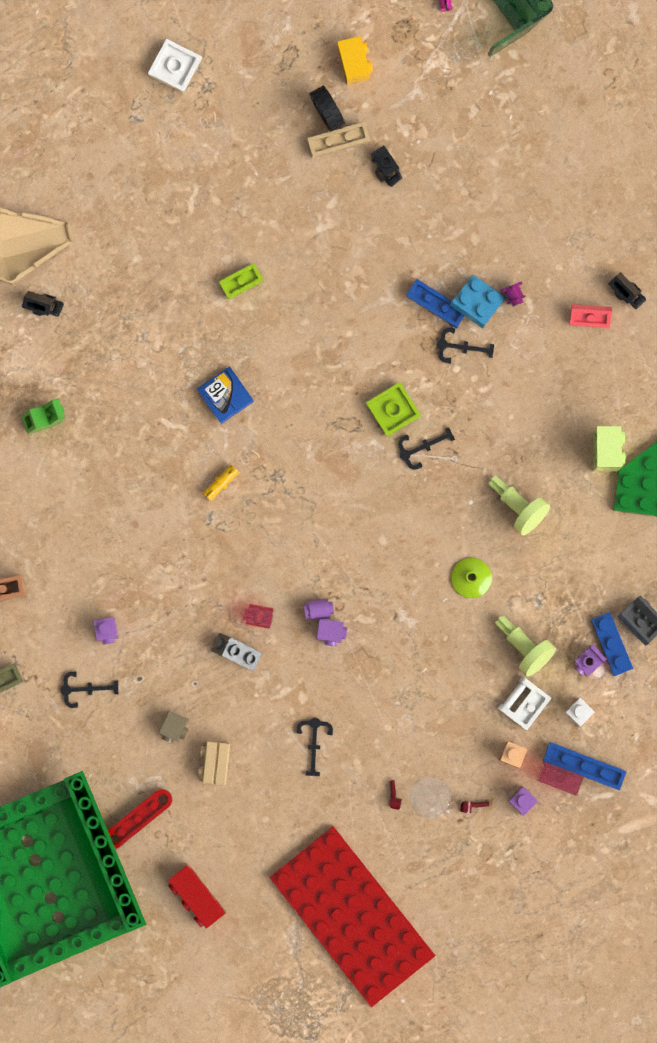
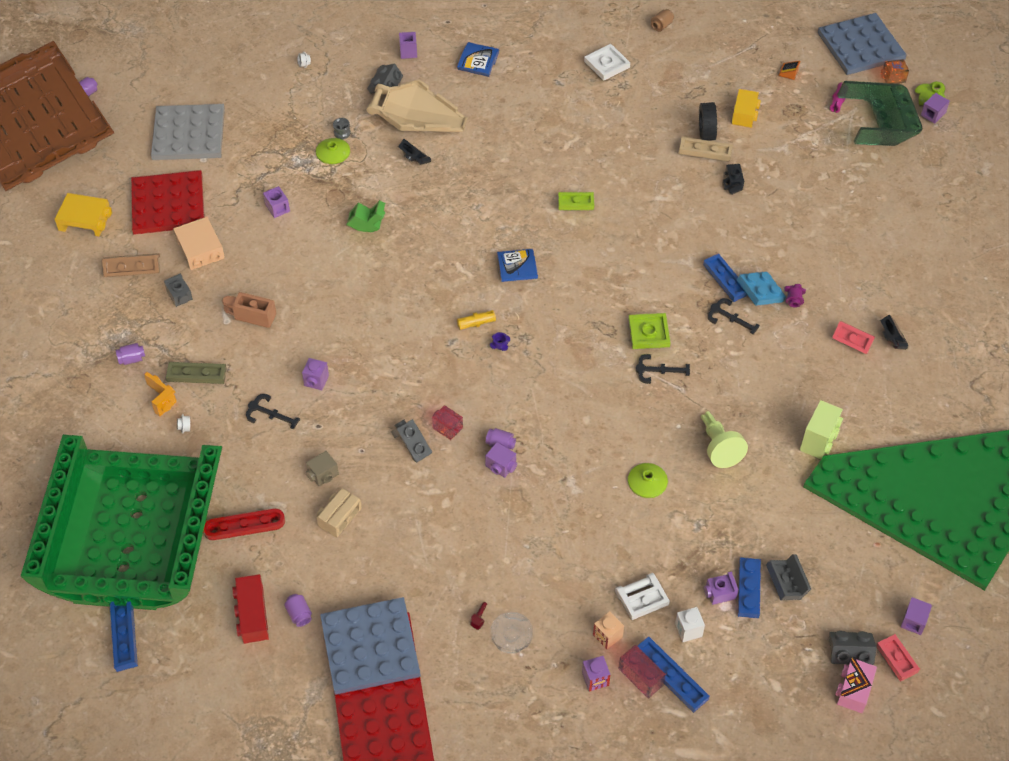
camera: 25 degrees right, 30 degrees down
(16, 746) = (183, 423): none -> white plate
(33, 132) = (478, 59): none -> blue slope
(103, 980) = (123, 637): none -> blue plate
(237, 875) = (298, 610): none -> medium lavender brick
(257, 491) = (500, 337): none -> dark purple plate
(314, 723) = (444, 526): black piece -> none
(320, 878) = (370, 645): none -> sand blue plate
(466, 807) = (541, 656): dark red hand -> none
(534, 655) = (672, 556): yellowish green piece -> none

